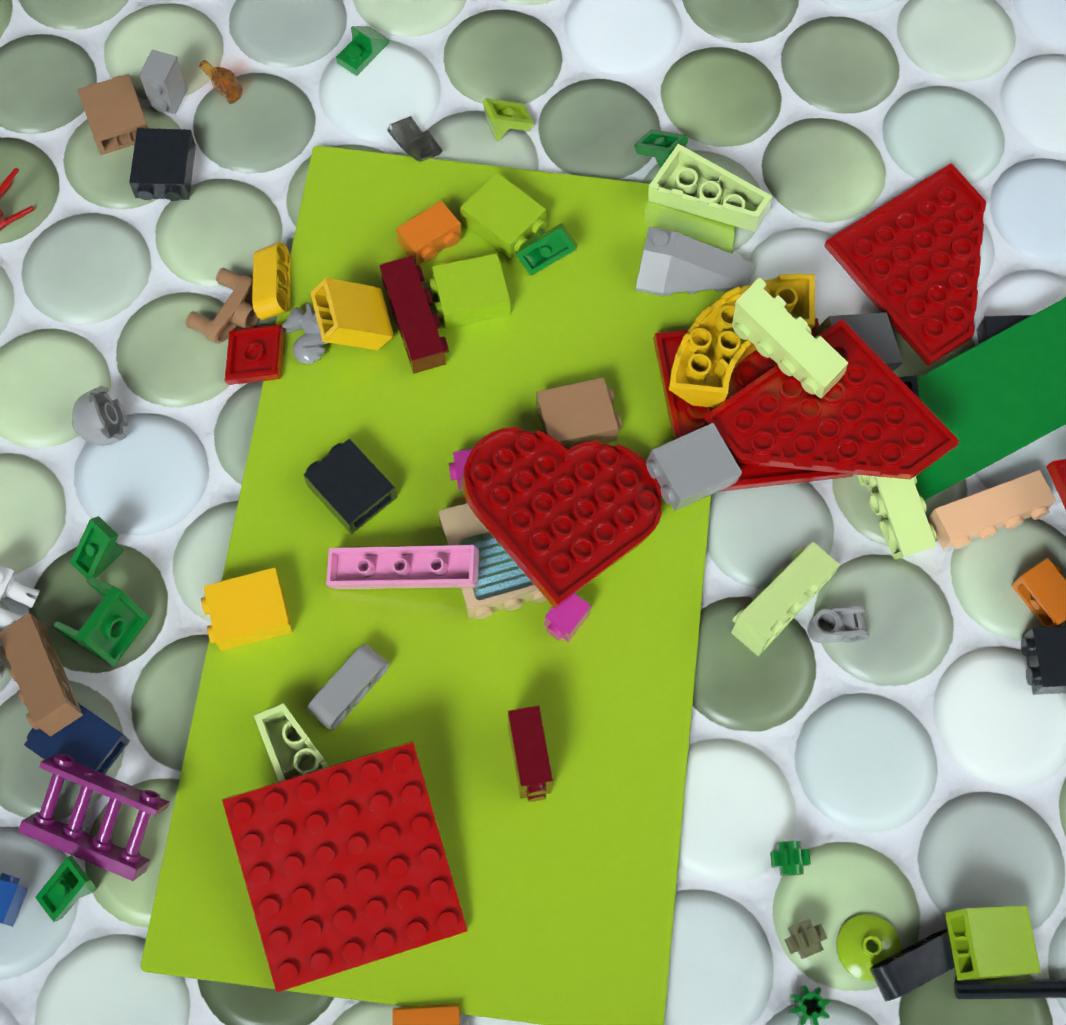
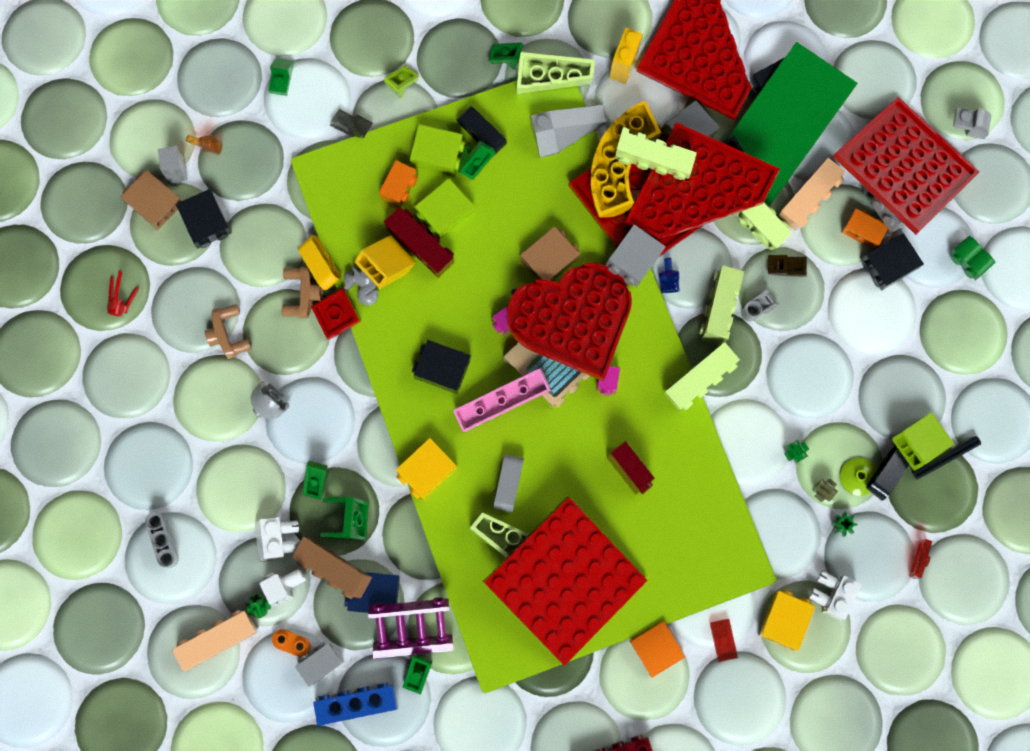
camera: 30 degrees left, 10 degrees up
(94, 306) = (218, 333): none -> medium nougat connector
(576, 217) = (481, 129): none -> black beam
(703, 678) = (702, 376): none -> yellowish green wedge
(729, 526) = (669, 278): none -> clear blue piece
(818, 214) = (625, 55): none -> yellow brick
(907, 592) = (787, 266): none -> dark brown slope

